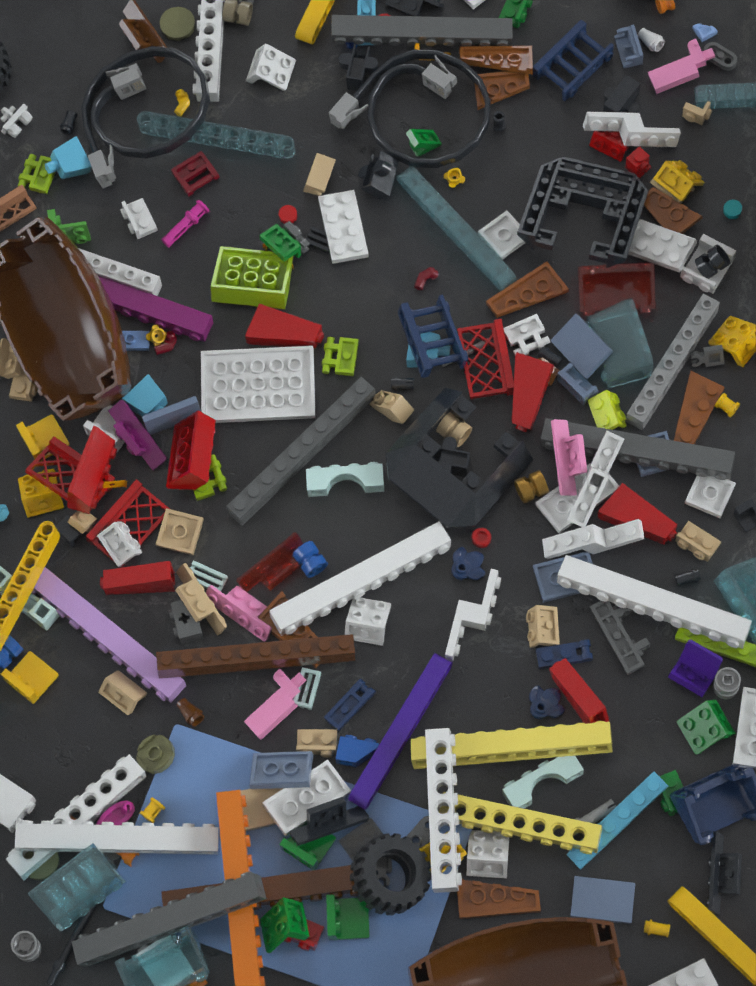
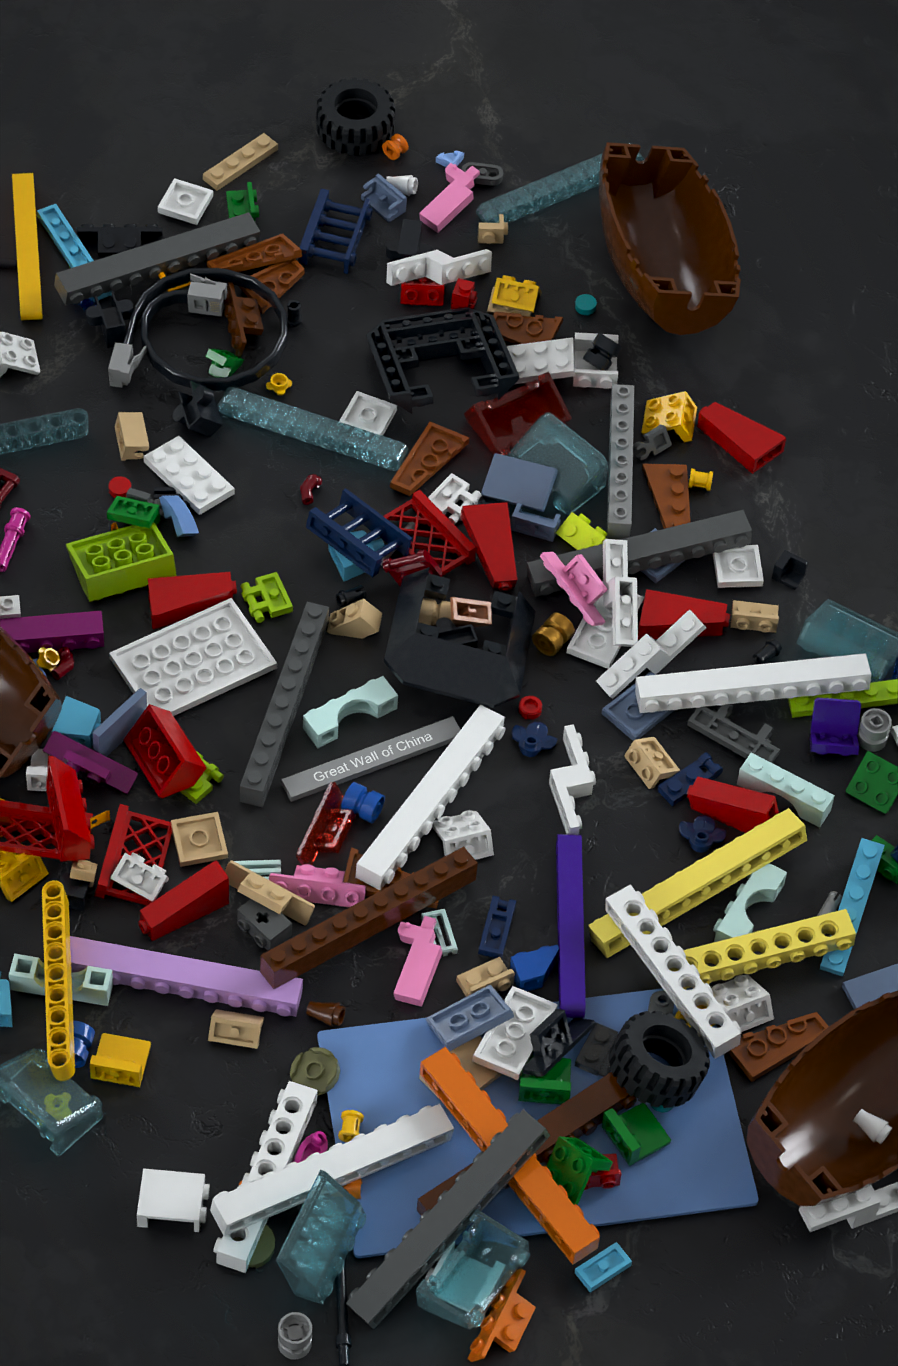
camera: 40 degrees left, 15 degrees down
(314, 256) = (183, 521): none -> medium blue slope
(340, 525) = (370, 759): none -> light grey tile
(456, 383) = (410, 564): none -> dark red plate
(459, 109) = (242, 317): none -> reddish brown bracket
(475, 441) = (470, 612): none -> nougat slope
(630, 701) = (809, 800): none -> light aqua arch

